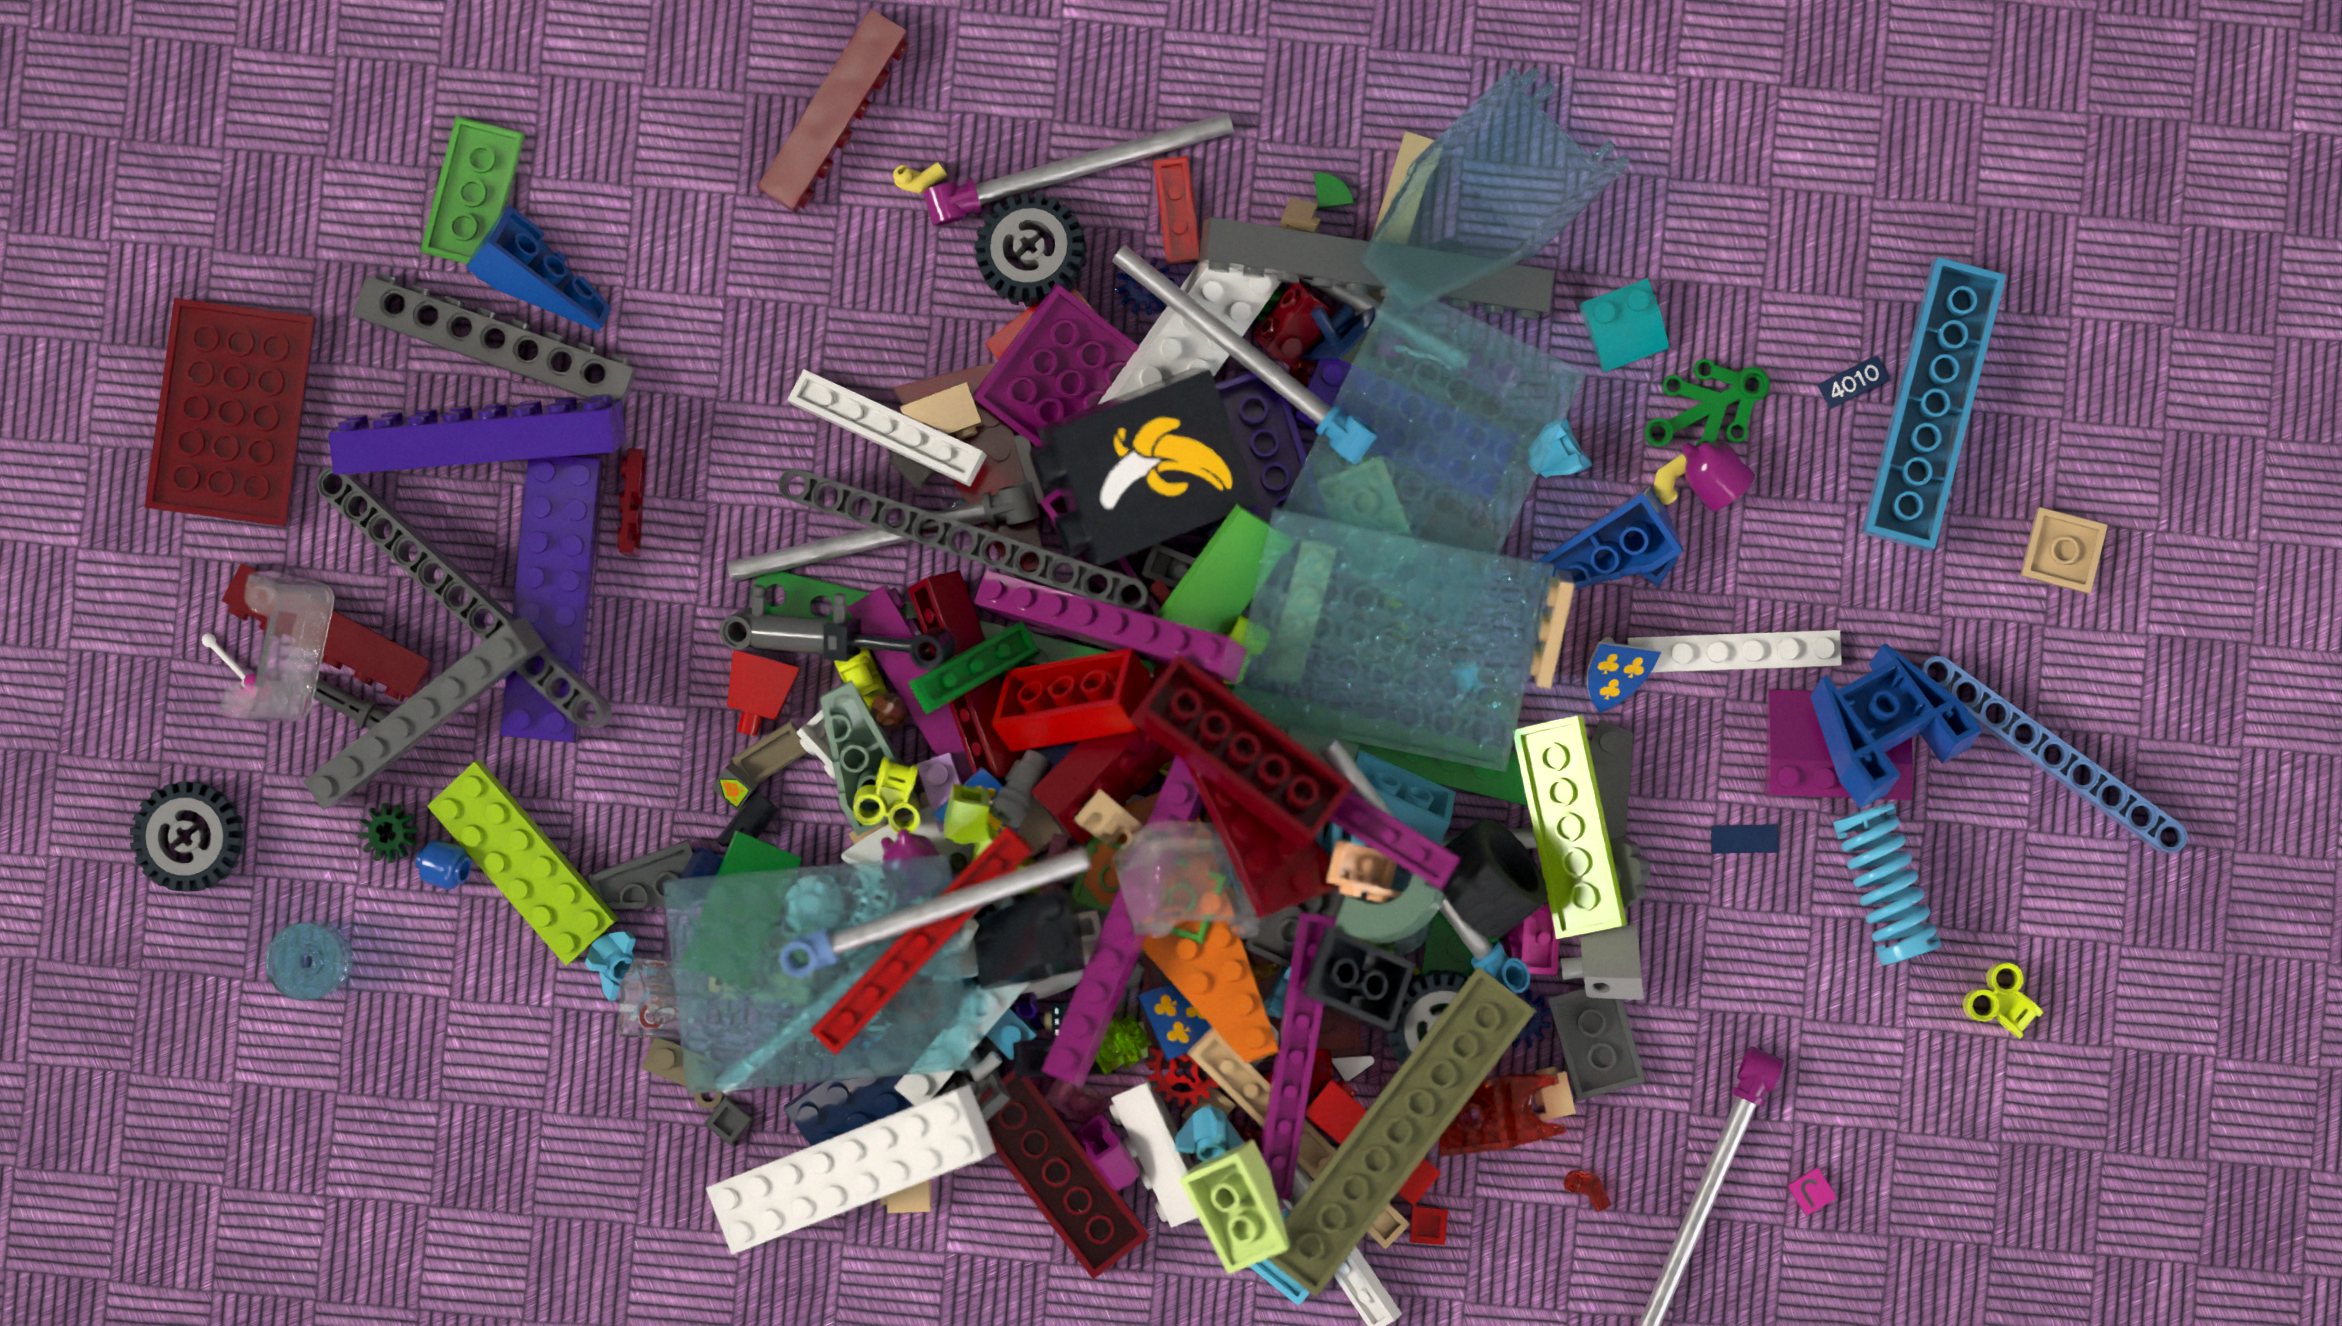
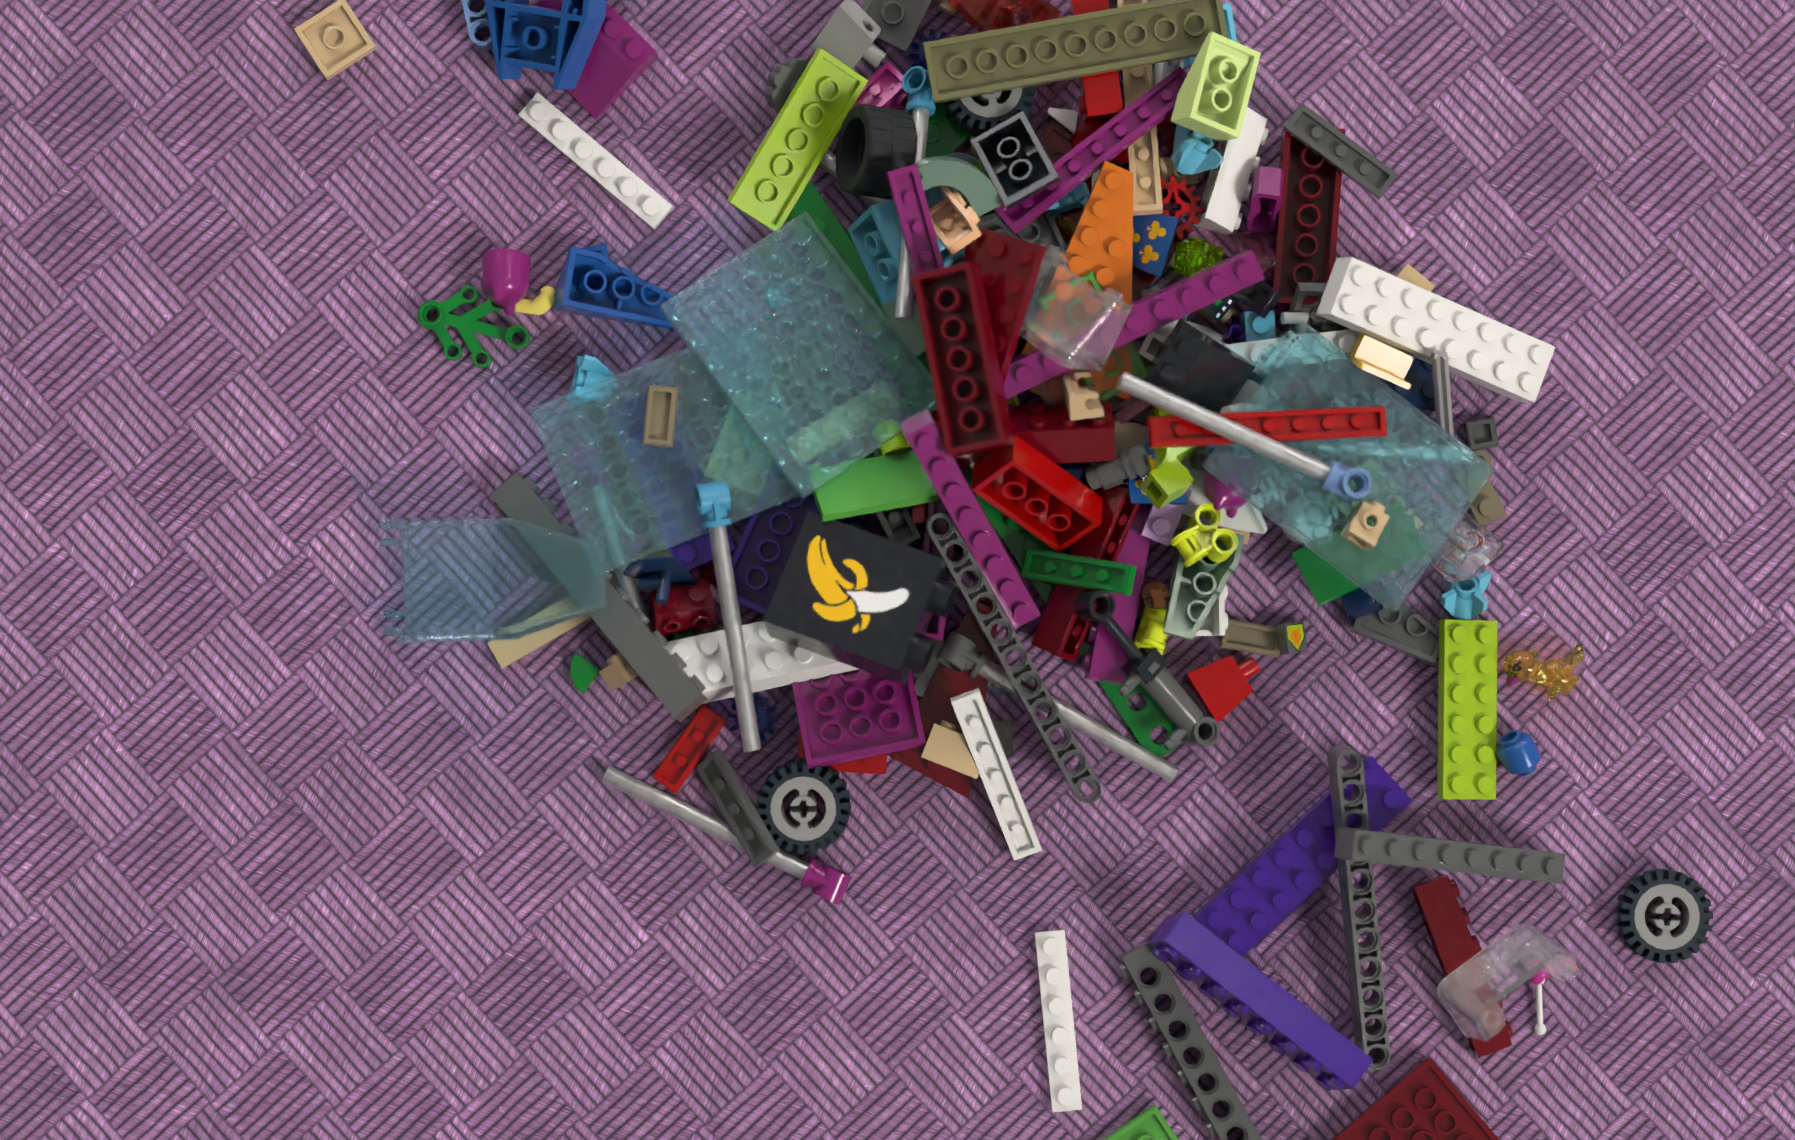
camera: 140 degrees left, 0 degrees up
(330, 958) = (1639, 762): clear light blue wheel -> none
(368, 709) = (1483, 892): dark grey pin -> none
(377, 838) = (1544, 809): dark green gear -> none
(475, 960) = (1551, 674): none -> clear yellow animal
(523, 266) = (1131, 1084): blue wedge -> none
(631, 503) = (1198, 873): dark red wing -> none
(639, 265) = (1058, 1021): none -> white plate
(750, 819) = (1301, 607): black hinge -> none
(757, 919) = (1359, 531): none -> tan brick
(794, 1118) = (1442, 390): none -> light grey axle
(833, 112) = (848, 1007): brick -> none
(874, 1097) = (1381, 360): none -> panel
(918, 181) = (835, 915): light yellow arm -> none
(1078, 1253) = (1340, 151): none -> dark grey plate
(1087, 194) = (737, 808): none -> dark grey tile
(1465, 470) = (660, 416): none -> dark tan tile
(1552, 628) = (695, 268): tan plate -> none
(1612, 765) = (732, 161): dark grey wing -> none
(1617, 672) = (679, 211): blue shield -> none
(1624, 325) = (477, 422): teal slope -> none
(1744, 839) = (695, 41): dark blue sticker -> none
(1853, 382) = (368, 260): dark blue sticker -> none
(1933, 404) = (331, 199): dark azure brick -> none

